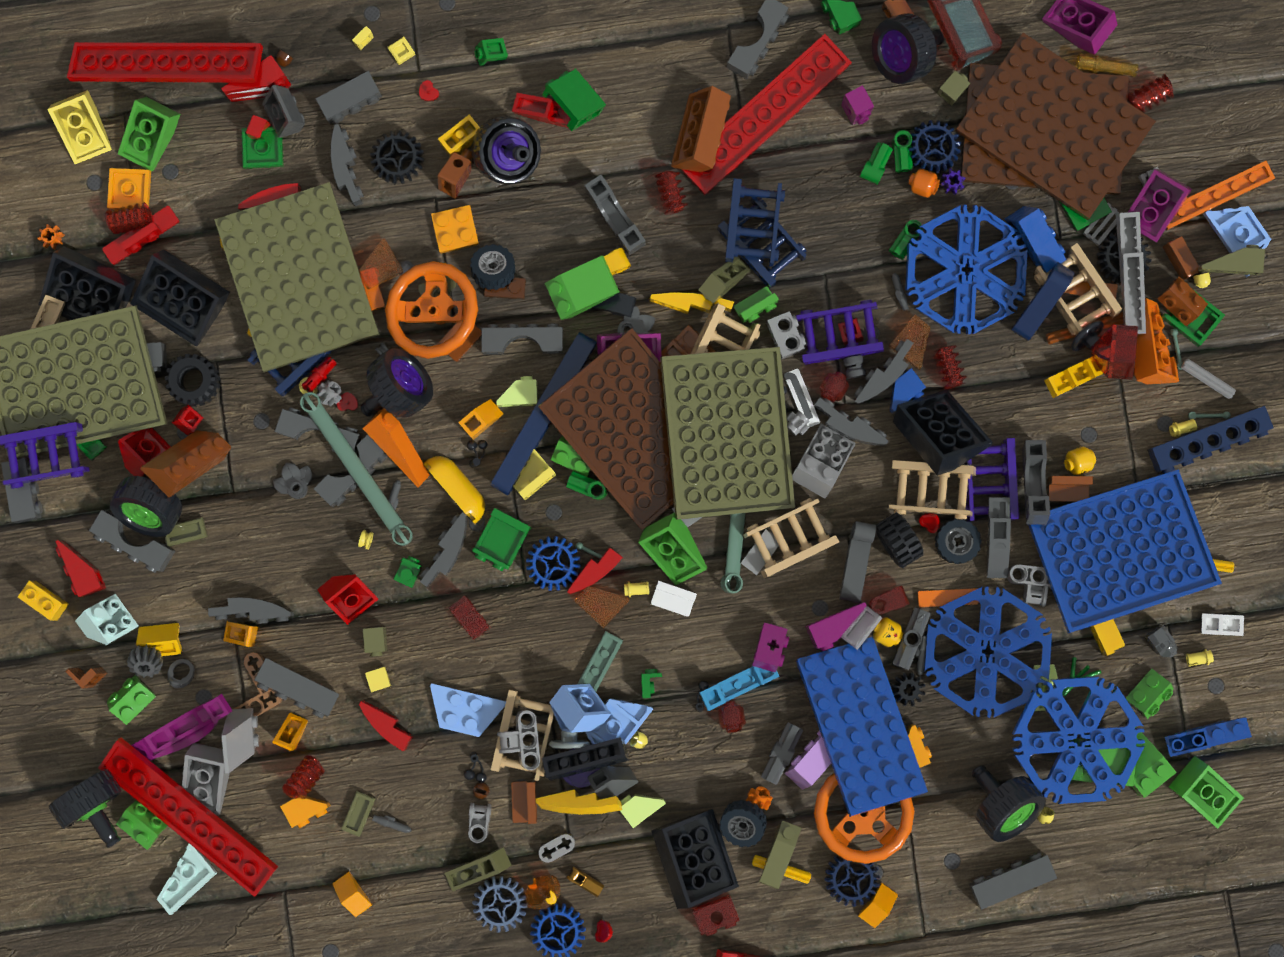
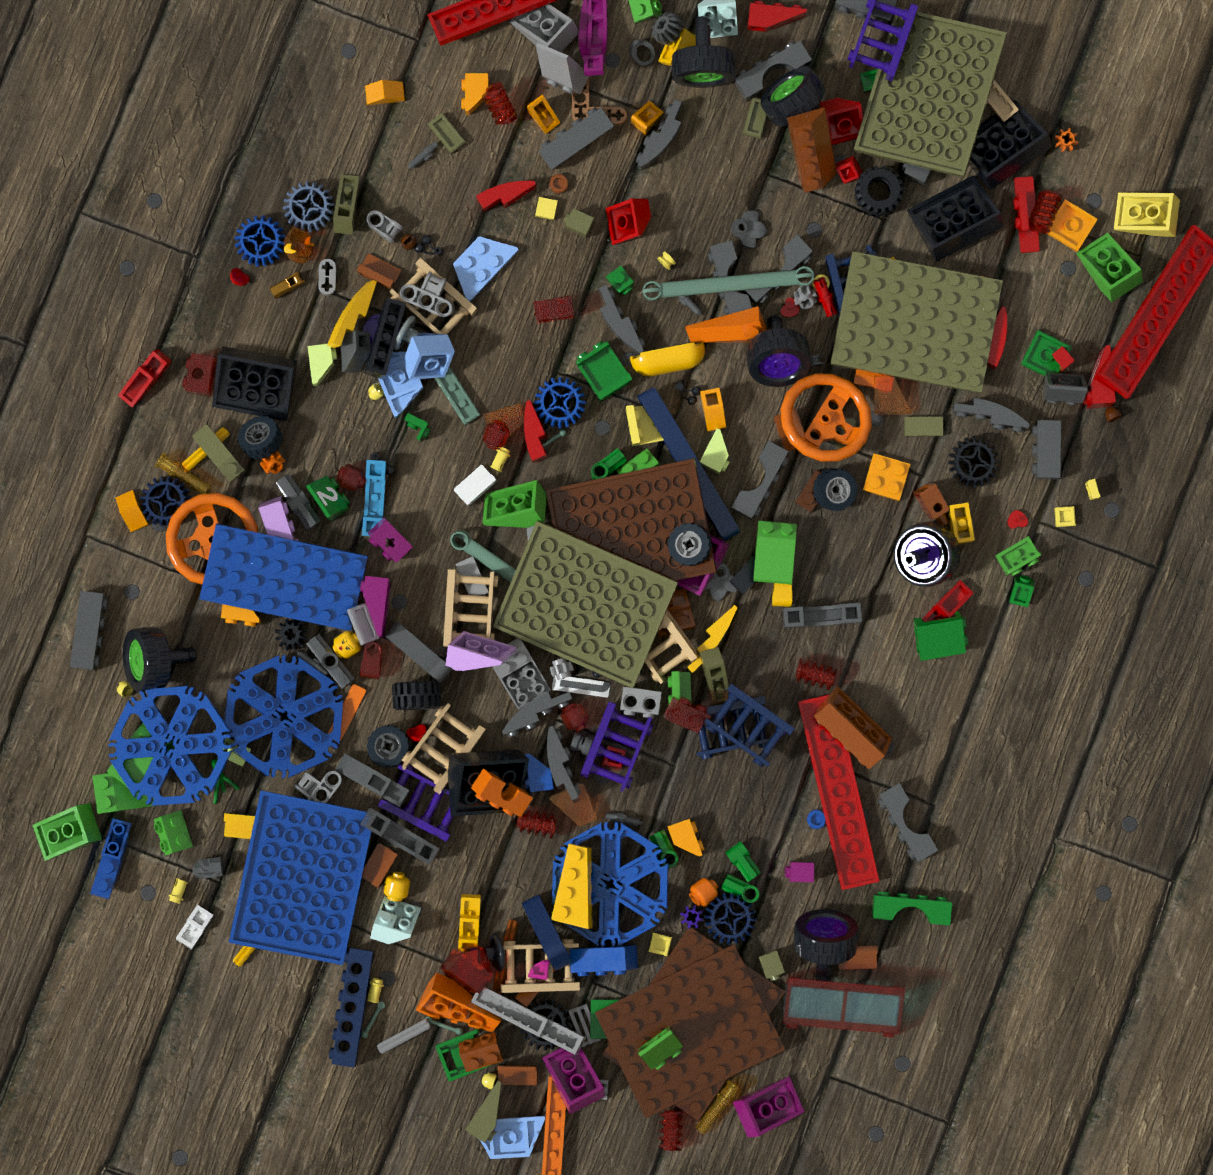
camera: 120 degrees right, 0 degrees up
(159, 606) = (703, 64): none -> black wheel
(348, 680) = (558, 183): none -> dark orange tile
(389, 221) = (923, 426): none -> olive tile
(461, 70) = (1017, 556): none -> bright green bracket
(616, 604) = (496, 434): none -> clear red head
(632, 365) = (678, 544): none -> black wheel
(762, 727) = (328, 498): none -> green slope
(776, 284) = (686, 714): none -> clear red bracket
(800, 121) = (816, 819): none -> blue tile
(817, 882) = (174, 469): none -> clear yellow pin
(829, 504) = (475, 652): none -> lavender slope
(885, 227) = (684, 837): none -> light orange slope
(947, 416) = (512, 800): none -> orange arch
(992, 197) = (660, 944): none -> light yellow tile
(994, 295) = (575, 888): none -> yellow wedge
(1081, 287) = (539, 970): none -> dark pink tile
(1089, 139) = (660, 1048): none -> bright green slope
(1112, 444) = (394, 921): none -> light aqua slope

